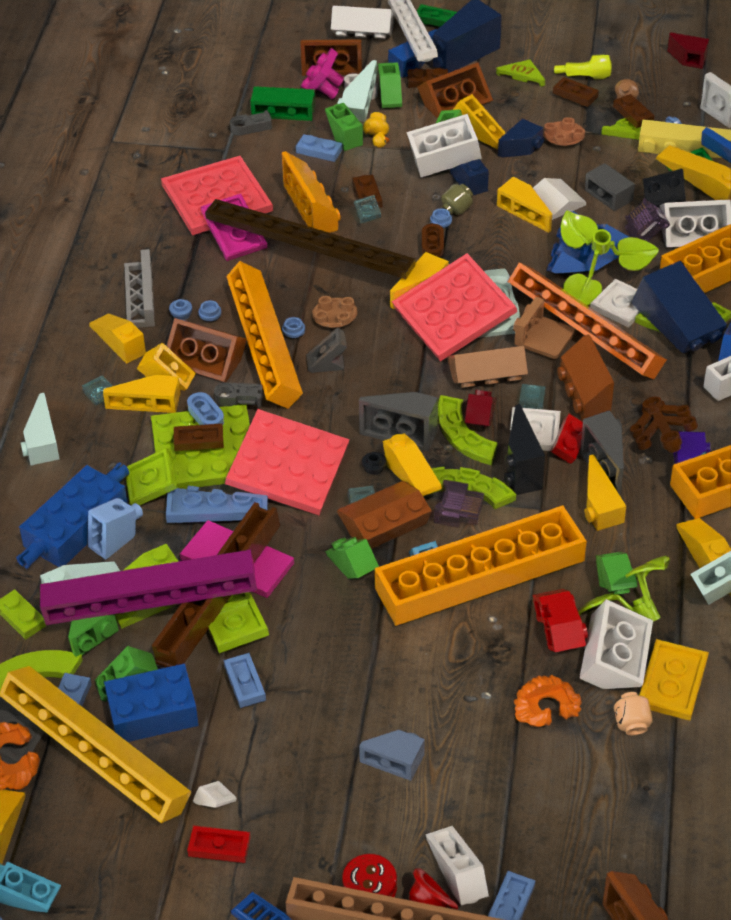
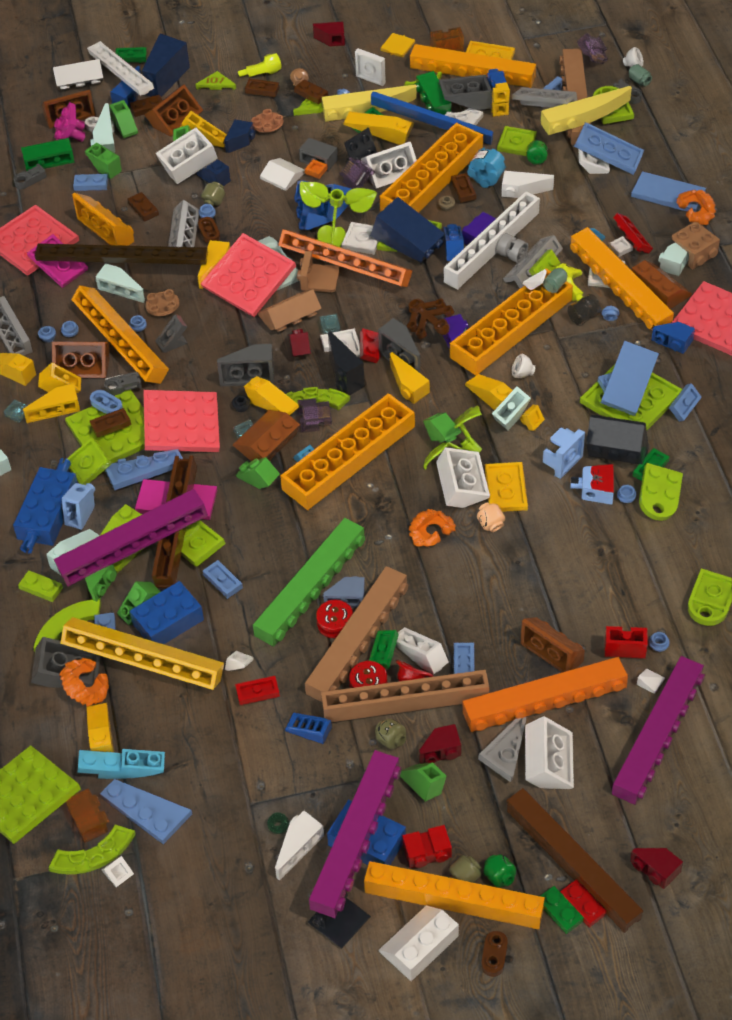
camera: 20 degrees left, 5 degrees up
(291, 270) = (118, 282): none -> light aqua slope
(352, 721) = (309, 582): none -> bright green brick
(363, 782) = (332, 617): none -> red head
(367, 209) = (150, 219): clear light blue plate -> none
(378, 127) = (128, 153): yellow animal -> none
(383, 812) = (357, 633): none -> medium nougat brick
(400, 226) = (179, 225): none -> light grey fence
(410, 845) = (384, 647): none -> green plate
(459, 436) = (291, 366): lime tile -> none
(524, 203) = (263, 183): yellow slope -> none
(560, 619) = (418, 470): red brick -> none
(586, 378) = (365, 300): dark orange slope -> none
(599, 203) = (316, 169): none -> orange plate

